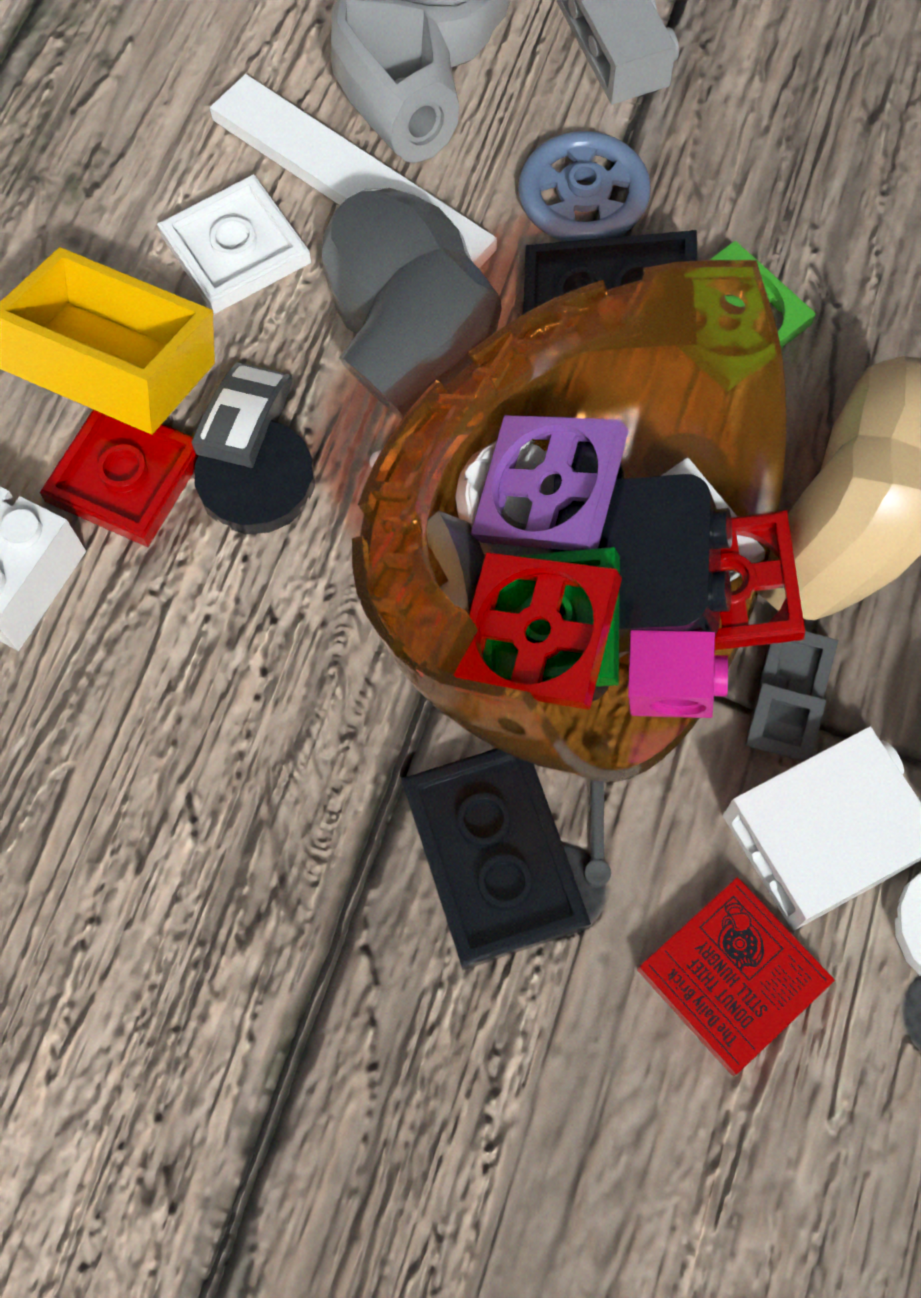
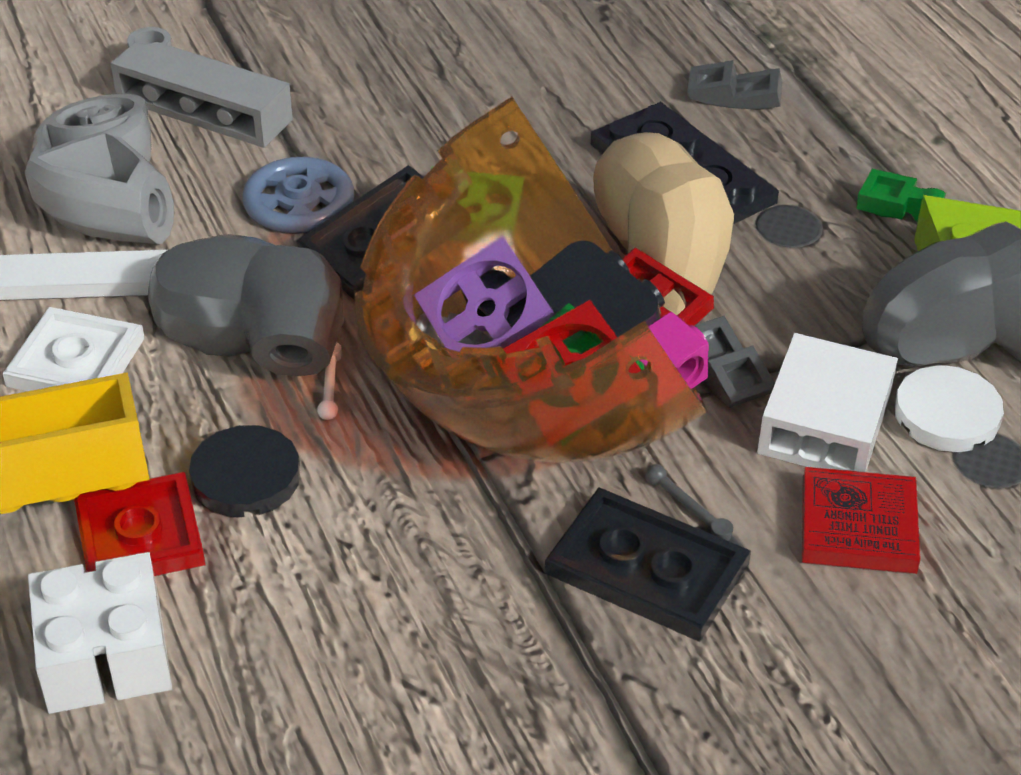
camera: 45 degrees left, 25 degrees down
(241, 414) = (199, 439): slope -> none

